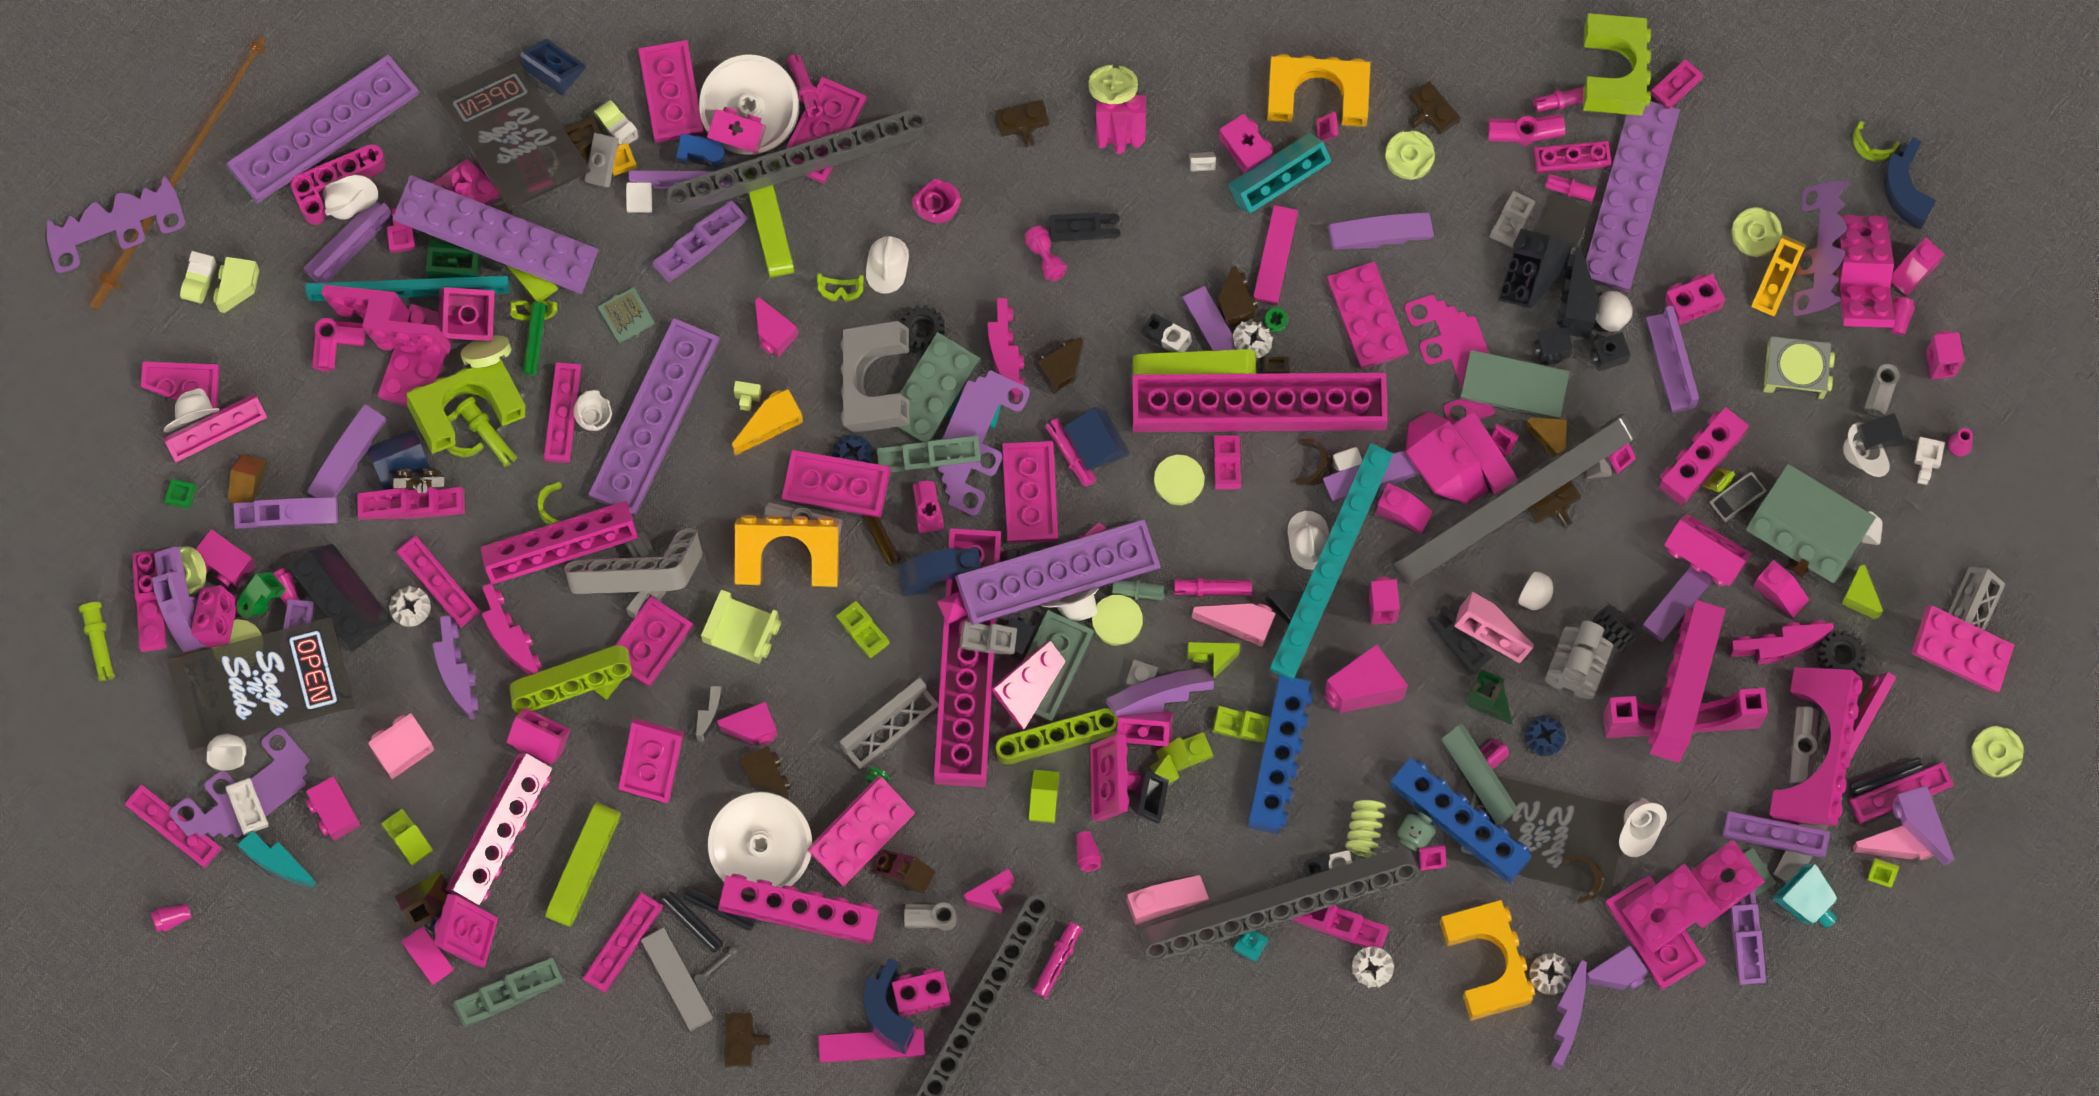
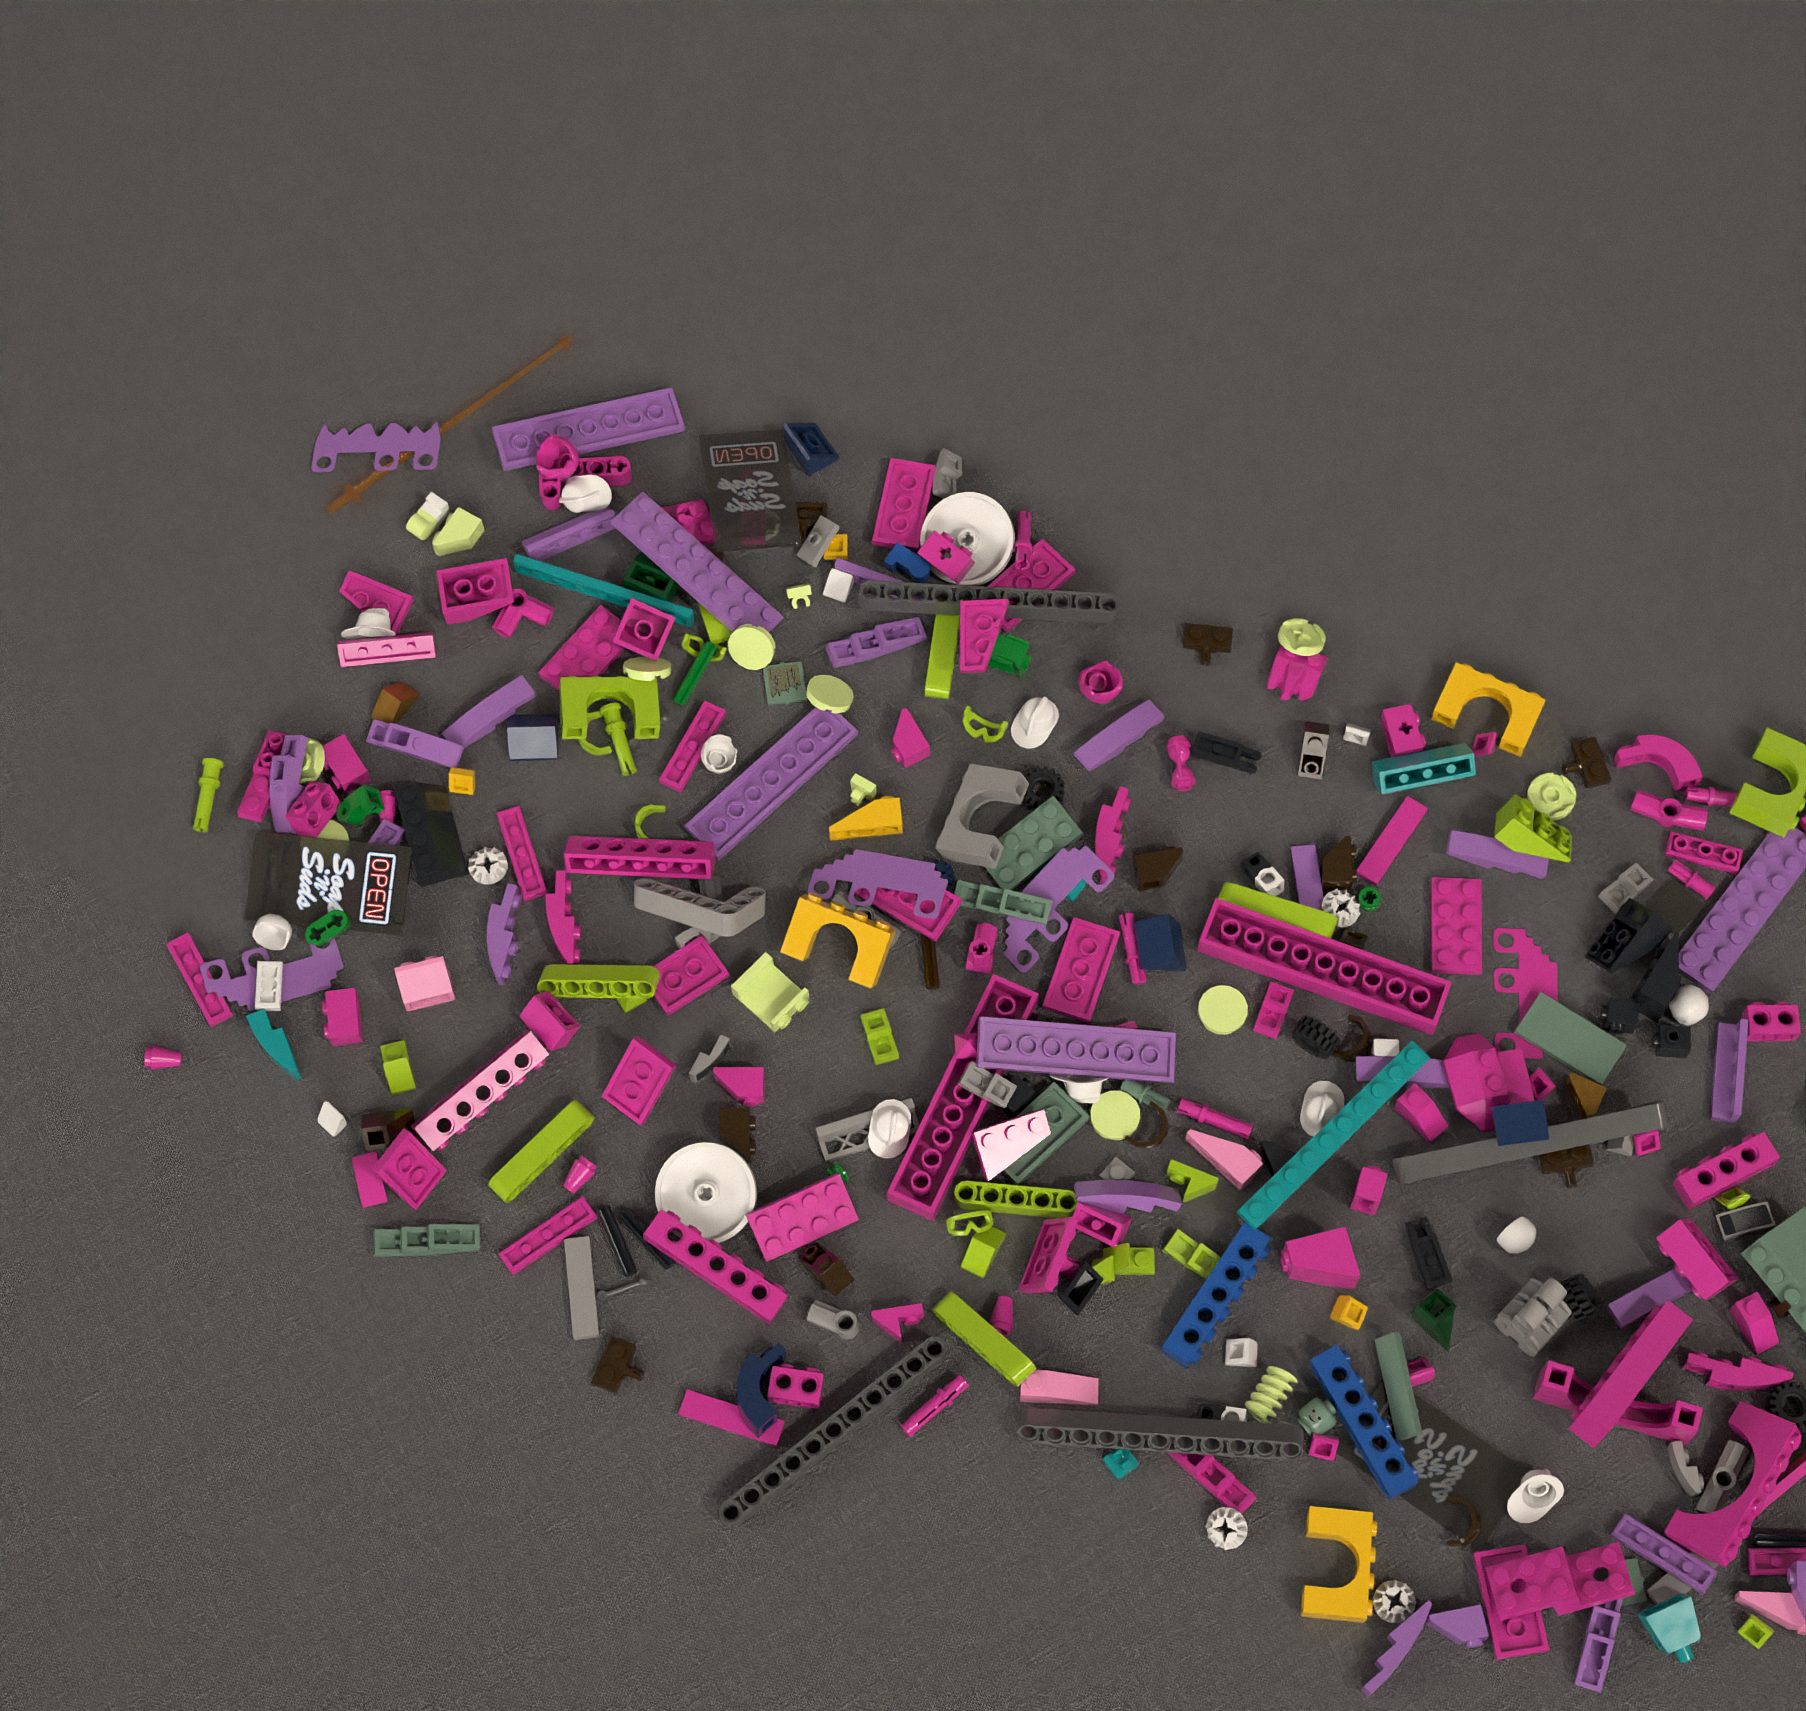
camera: 25 degrees right, 5 degrees down
(180, 494) = (333, 695): green tile -> none
(274, 723) = (331, 932): none -> green beam
(280, 335) = (474, 590): none -> dark pink slope
(307, 171) = (557, 457): none -> dark pink hair
(348, 532) = (461, 781): none -> yellow plate
(364, 912) = (331, 1119): none -> white slope
(386, 320) = (570, 608): dark pink bracket -> none
(400, 237) = (616, 545): dark pink plate -> none
(408, 504) = (526, 776): dark pink slope -> none
(416, 479) = (539, 757): dark brown plate -> none
(580, 291) = (751, 646): none -> yellowish green tile
(603, 218) = (797, 592): none -> yellowish green tile
(616, 123) = (844, 515): leg -> none
(629, 872) = (579, 1174): none -> dark pink cone
(676, 310) = (829, 693): none -> yellowish green tile
(700, 43) = (946, 473): none -> light grey slope
(803, 196) = (979, 631): none -> dark pink wing
(806, 466) = (885, 871): none -> medium lavender piece
(829, 207) = (1010, 655): none -> green piece
(909, 714) = (889, 1128): none -> white piece
(936, 566) = (966, 1002): dark blue arch -> none
(975, 247) = (1118, 735): none -> medium lavender slope
(1004, 784) = (950, 1223): none -> lime helmet
(1080, 879) = (984, 1339): none -> lime beam
(1167, 192) = (1313, 750): none -> slope
(1170, 619) = (1159, 1138): none -> dark brown helmet
(1277, 474) = (1315, 1037): none -> black tyre
(1322, 799) = (1241, 1352): none -> white slope
(1405, 198) = (1532, 831): none -> lime slope
(1407, 722) = (1349, 1312): none -> yellow slope
(1492, 627) = (1462, 1252): bright pink slope -> none
(1501, 484) = (1520, 1123): none -> dark blue slope
(1503, 73) = (1665, 753): none -> dark pink arch
(1541, 746) = (1467, 1382): dark blue gear -> none
(1772, 755) = (1687, 1476): none -> light grey slope

